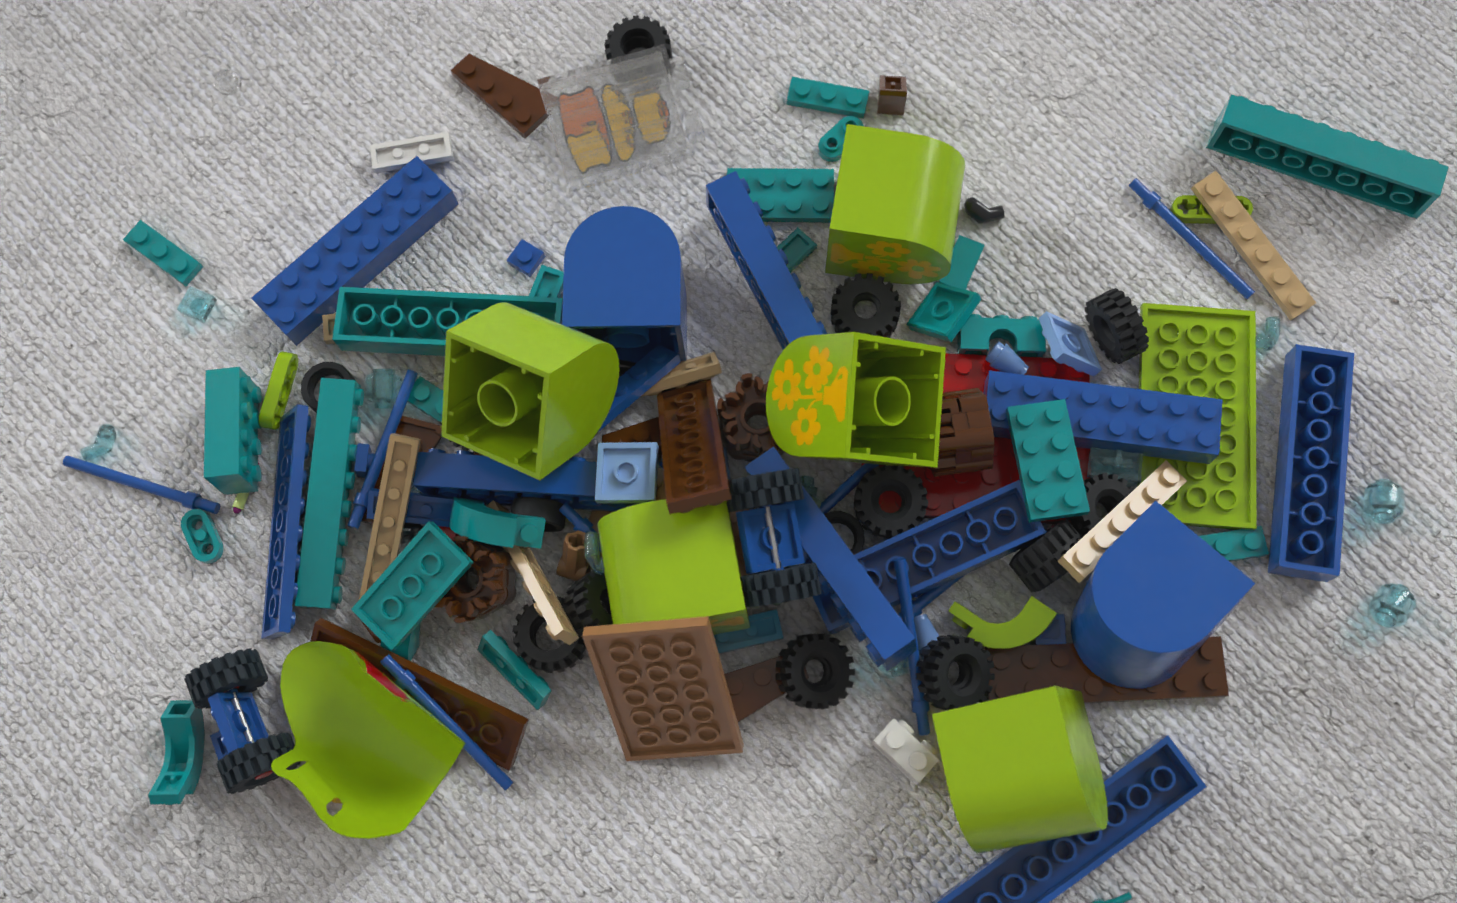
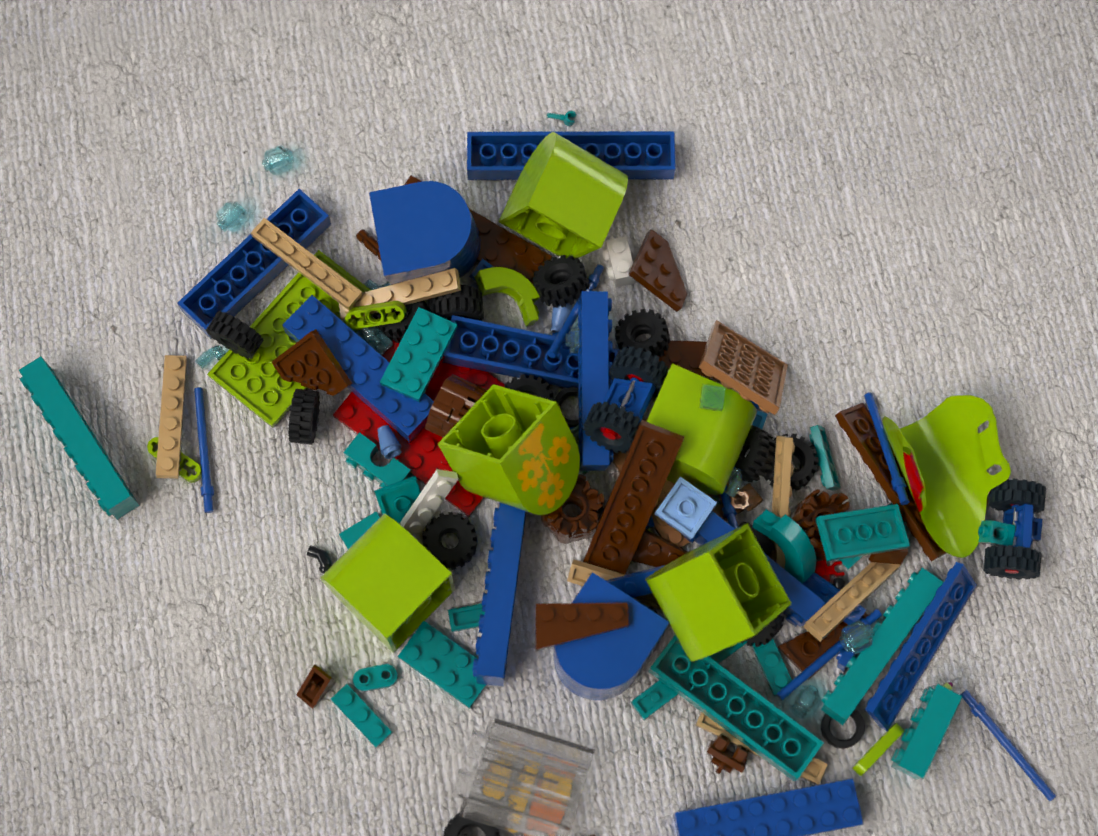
camera: 155 degrees left, 0 degrees up
(102, 445) = (1020, 792): clear light blue arm -> none
(183, 753) = (1065, 536): teal arch -> none
(202, 538) = (984, 679): teal plate -> none
(262, 702) = (1004, 531): none -> teal brick
(358, 474) = (856, 637): none -> clear light blue head
(434, 279) = (725, 758): none -> reddish brown hips
(526, 258) = (650, 736): blue plate -> none
(665, 258) = (575, 621): none -> reddish brown wing
(669, 593) = (712, 397): none -> clear light blue plate
(853, 769) = (658, 271): none -> reddish brown plate
(890, 593) = (572, 340): none -> clear light blue plate
(914, 314) = (429, 500): none -> white plate
(1069, 344) = (342, 424): light blue plate -> none
(1120, 490) = (382, 308): none -> lime beam
(1161, 379) = (312, 365): none -> reddish brown plate
(1238, 544) = (347, 255): teal plate -> none
(1255, 485) = (306, 264): none -> tan plate
(1262, 353) = (234, 335): none -> black tyre

